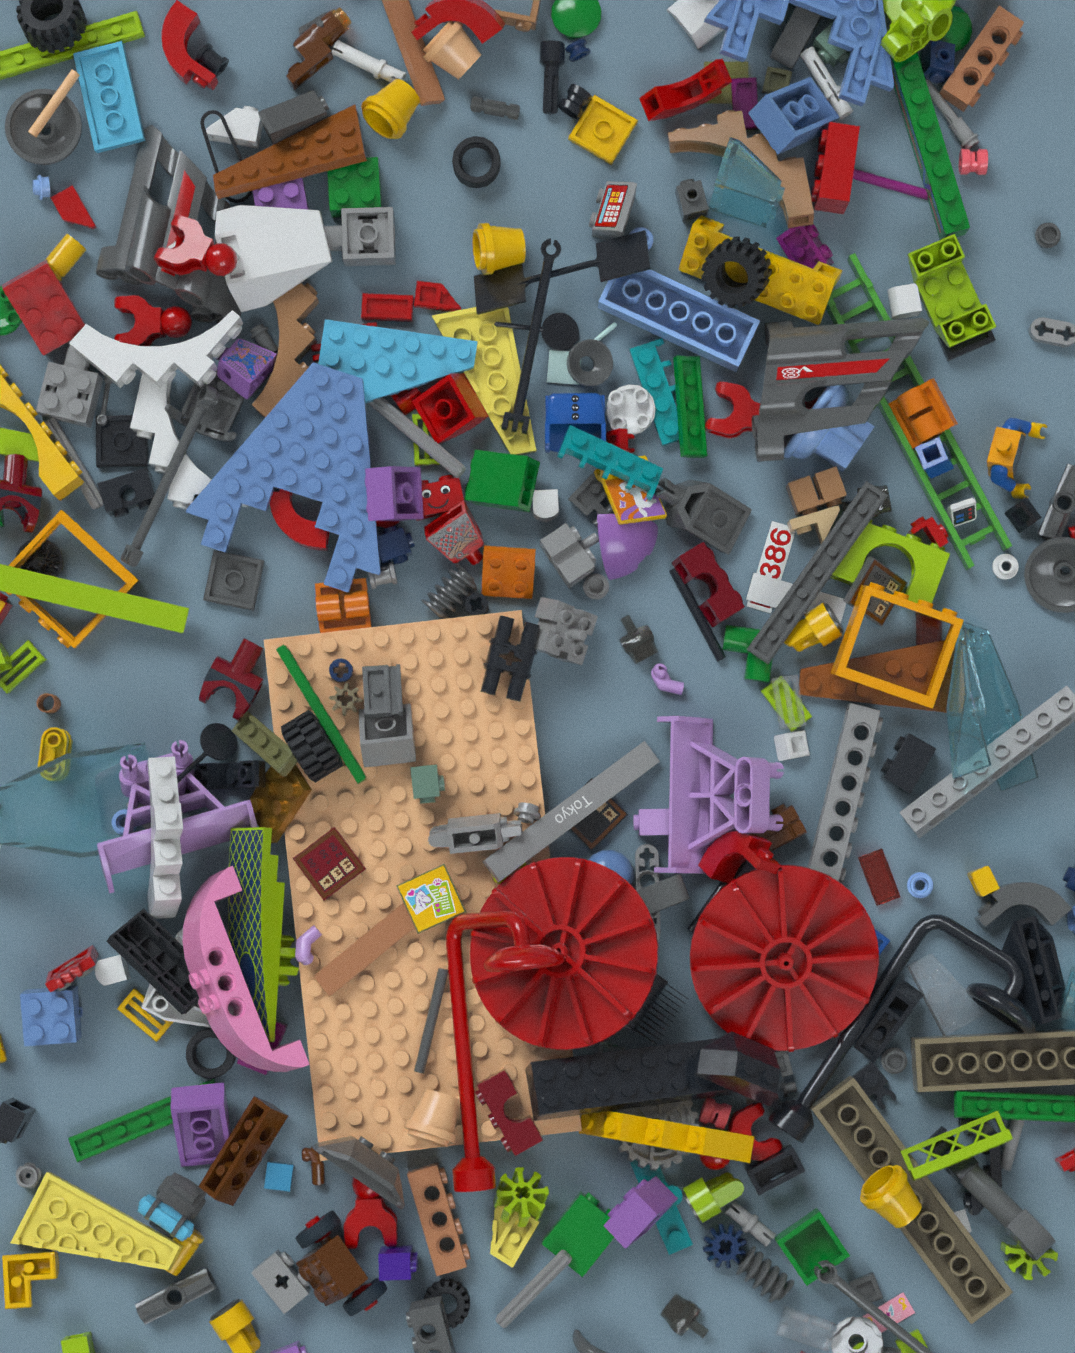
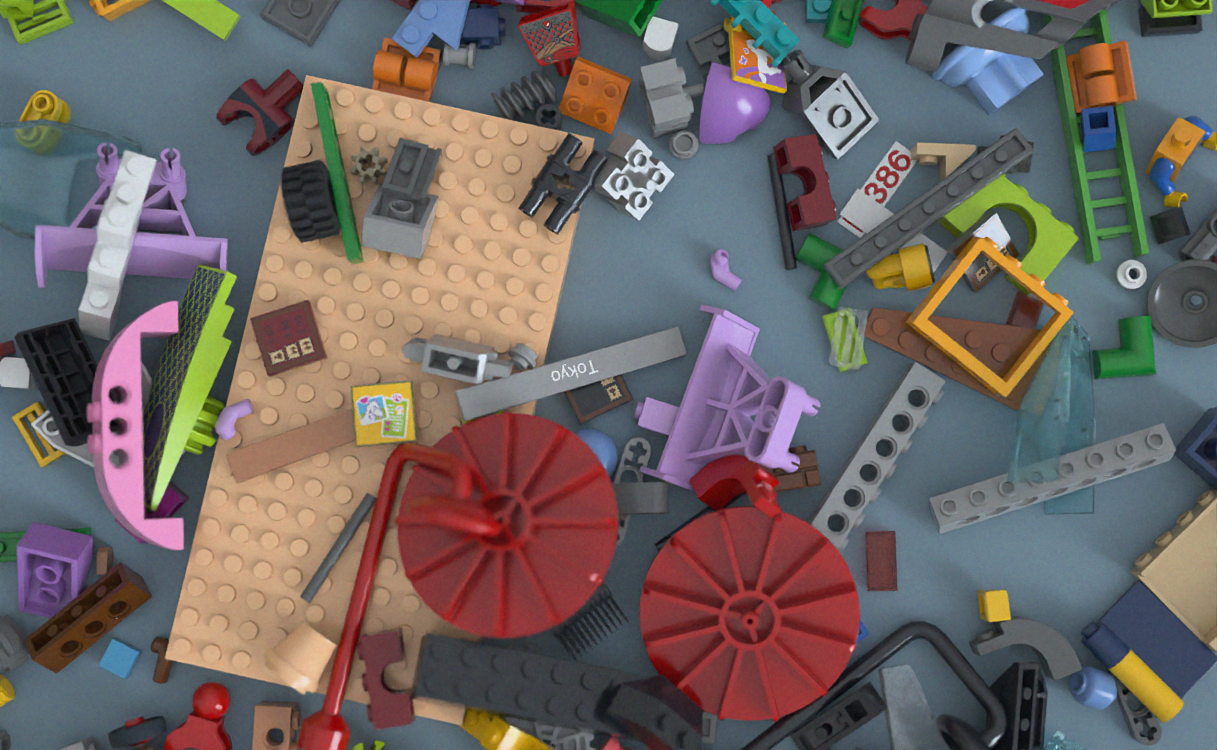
camera: 15 degrees right, 0 degrees up
(57, 703) = (48, 62): nougat piece -> none
(192, 1060) = (72, 508): black tyre -> none
(217, 742) = (218, 168): black piece -> none
(232, 775) = (229, 211): black slope -> none
(237, 1100) = (104, 560): none -> medium nougat piece
(265, 743) = (265, 185): olive tile -> none
(280, 800) = (260, 247): pearl gold plate -> none
(346, 676) = (374, 125): dark blue bush -> none
(365, 1165) = (207, 680): dark grey wedge -> none
(427, 783) = (424, 286): sand green brick -> none
(637, 642) = (708, 218): clear smoke piece -> none
(791, 745) = (834, 386): white slope -> none
(828, 486) = (955, 125): medium nougat piece -> none
(907, 763) = (954, 448): black brick -> none
(928, 885) = (929, 591): light blue plate -> none
(935, 533) = (1065, 206): red bracket -> none
(962, 512) = (1107, 198): slope -> none
(1031, 632) = (1136, 352): none -> green brick

